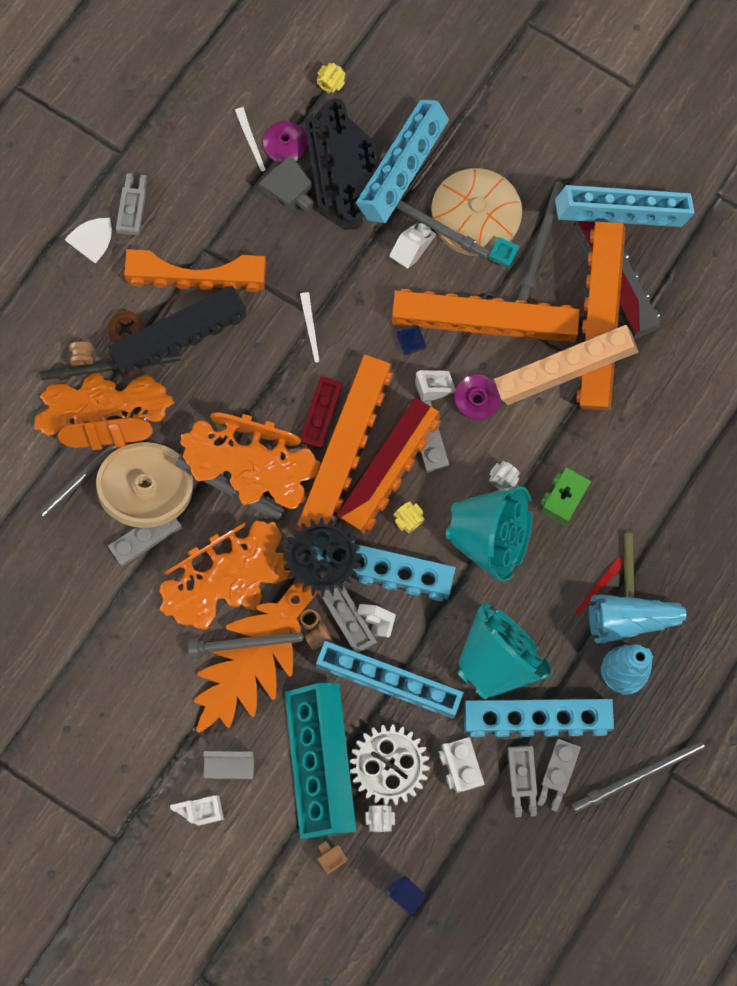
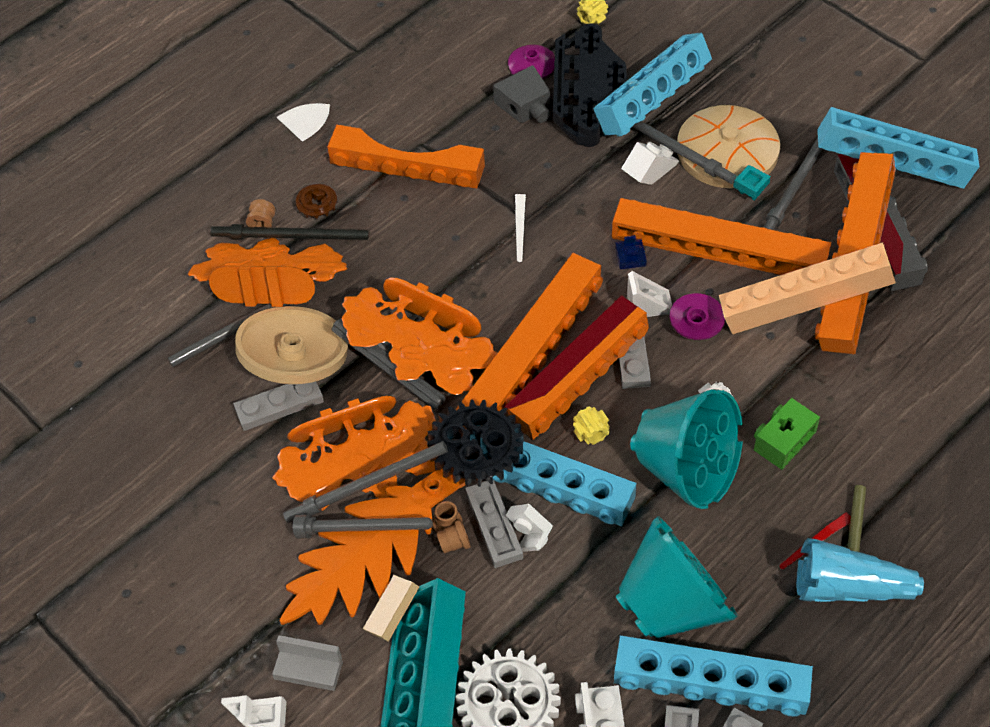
camera: 20 degrees right, 20 degrees down
(131, 206) = (354, 94): light grey hinge -> none
(177, 332) = (370, 206): black brick -> none
(200, 628) = (315, 504): none -> dark grey bar
(247, 131) = (491, 34): white sticker -> none
(283, 707) = (391, 608): none -> tan tile
(321, 412) = (511, 307): dark red plate -> none
(389, 680) = (530, 597): medium azure brick -> none
(626, 668) = (839, 631): medium azure cone -> none

